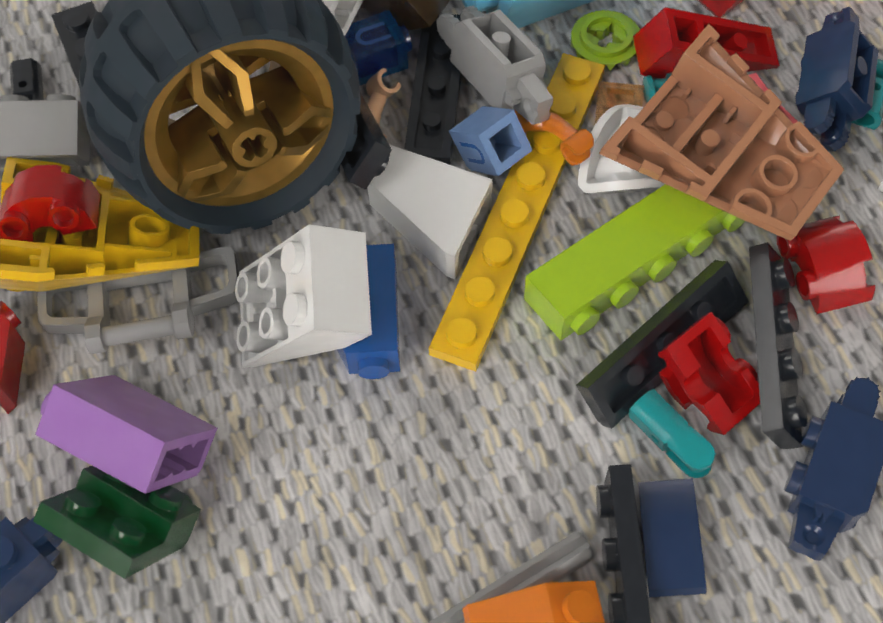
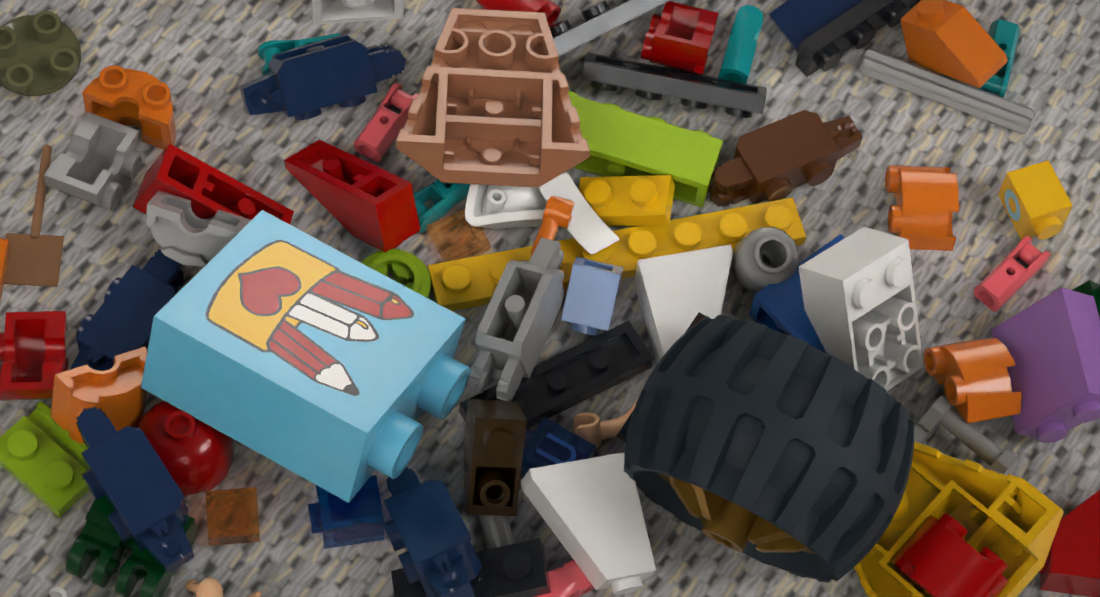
camera: 135 degrees left, 0 degrees up
(185, 366) = (975, 378): none -> orange cylinder
(256, 497) = (1010, 275): none -> coral bar
(306, 576) = (1035, 200): none -> yellow brick
(391, 475) = (923, 205): none -> orange cylinder
(424, 282) = (765, 245): none -> light grey head
(520, 381) = (782, 157): none -> reddish brown hinge
(561, 178) = (585, 223): none -> white sticker
(563, 223) = (630, 199): none -> yellow plate

